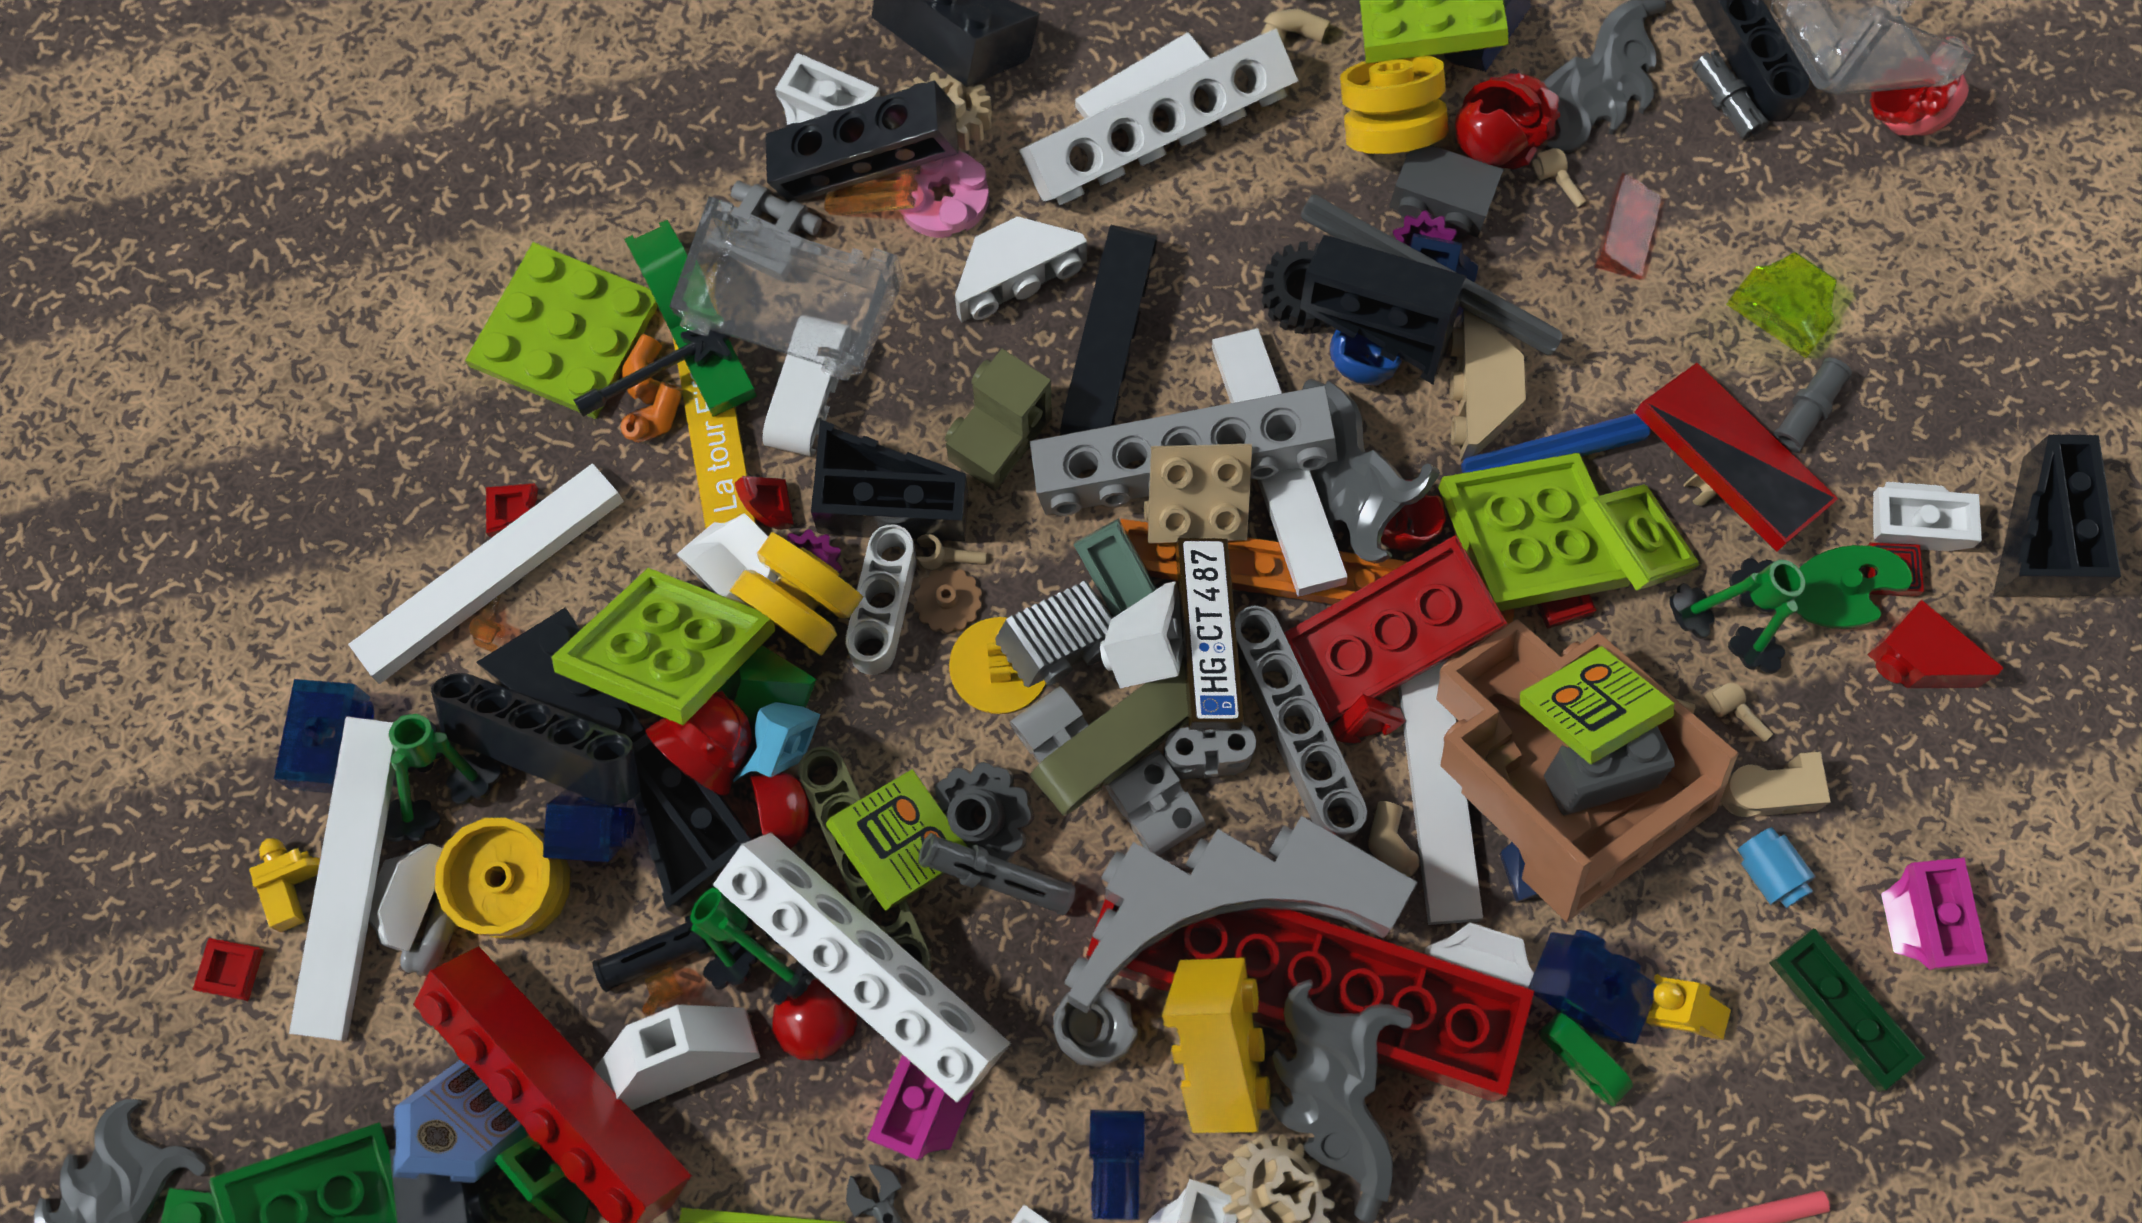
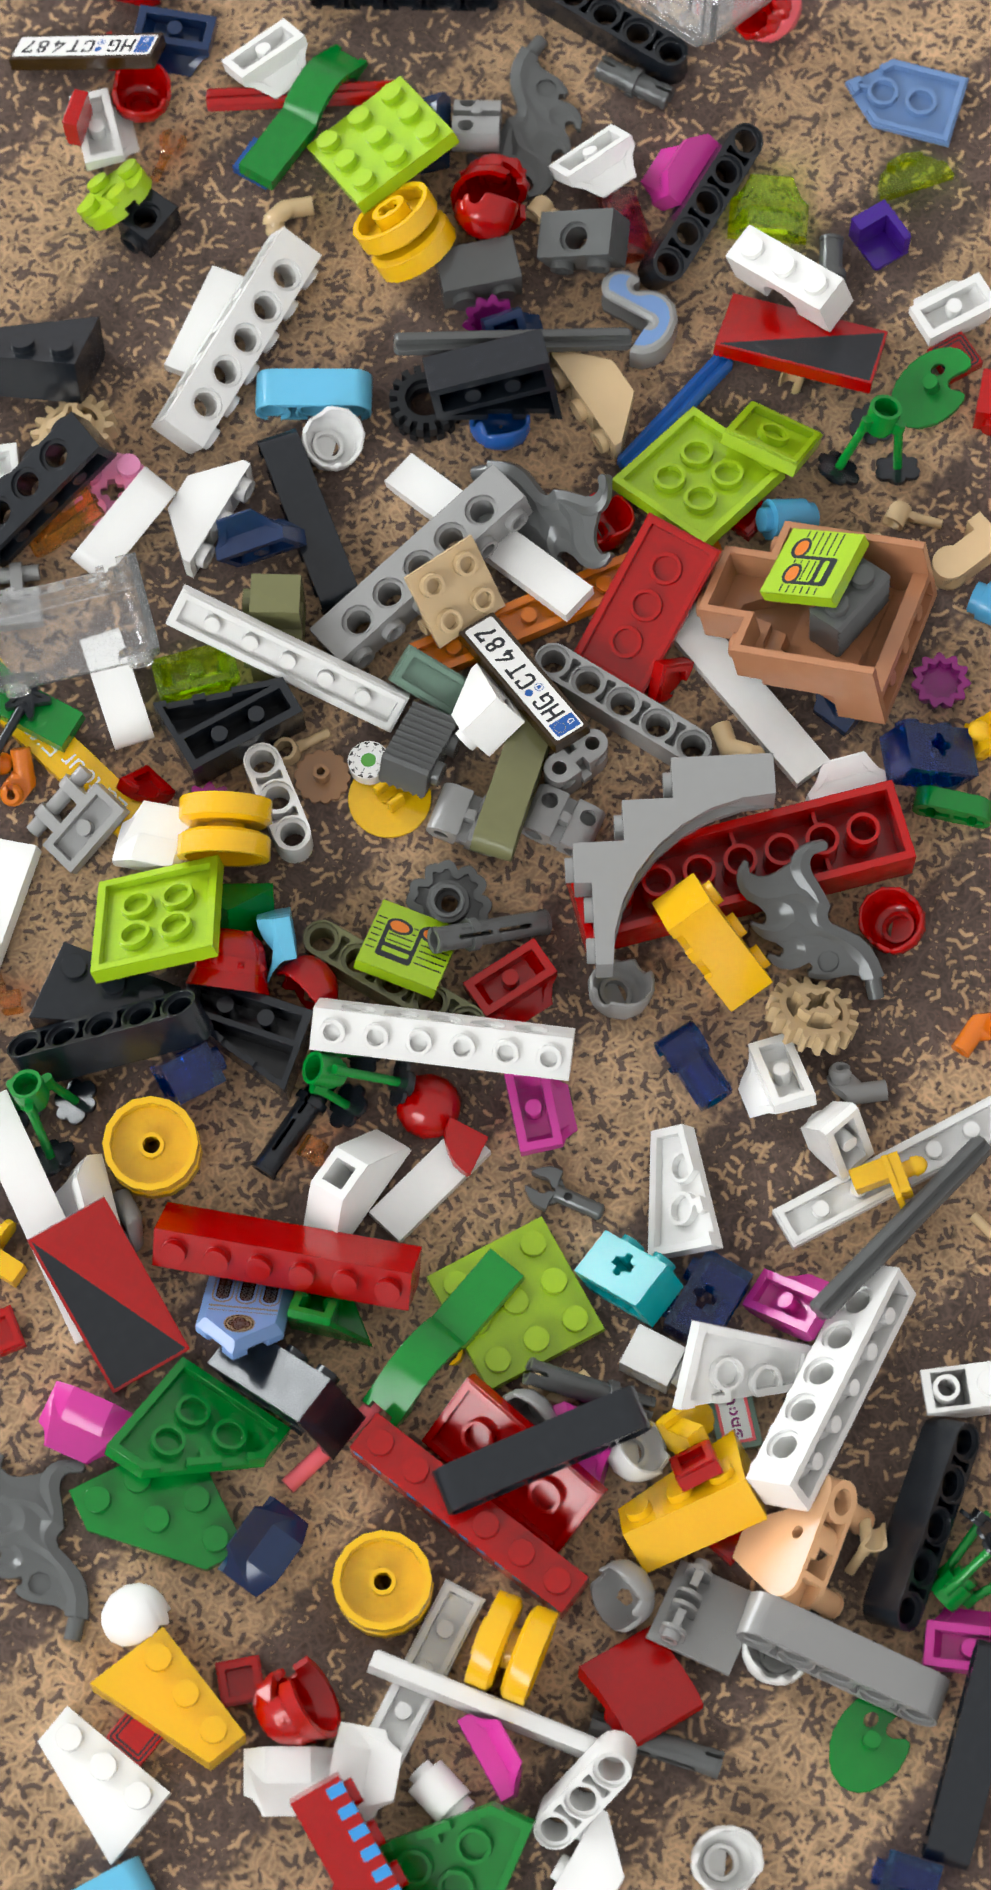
camera: 30 degrees left, 0 degrees up
(231, 1124) = (80, 1422): none -> dark pink slope
(347, 1006) = (108, 1294): none -> tile
(681, 502) = (85, 827): none -> light grey plate
(758, 1104) = (420, 1192): none -> white tile
(813, 1090) = (463, 1145): none -> red tile
(893, 417) = (194, 672): none -> clear neon green slope
(927, 224) = (124, 522): none -> white beam
(984, 457) = (287, 658): none -> white tile
(985, 949) = (515, 985): none -> red slope
(995, 609) = (365, 762): none -> white tile
(1036, 317) = (254, 537): none -> dark blue slope
(1184, 256) = (332, 427): none -> white hair
(1201, 211) = (306, 392): none -> medium azure beam
(1453, 1156) = (889, 906): none -> red hair
(1539, 45) = (477, 125): none -> light grey piece
(1573, 217) = (565, 230): none -> dark grey brick
(1592, 326) = (644, 310): none -> light grey animal
(1595, 616) = (777, 511): none -> dark azure brick
(1640, 151) = (599, 163): none -> white slope
(1659, 910) = (940, 681): none -> magenta piece
(1718, 205) = (677, 170): none -> dark pink slope
(1738, 248) = (689, 219): none -> black beam
(1782, 400) = (771, 265): none -> white arch
(1893, 393) = (879, 235): none -> dark purple panel
(1967, 351) = (910, 174): none -> clear neon green tile
(2013, 276) = (910, 100): none -> medium blue tile

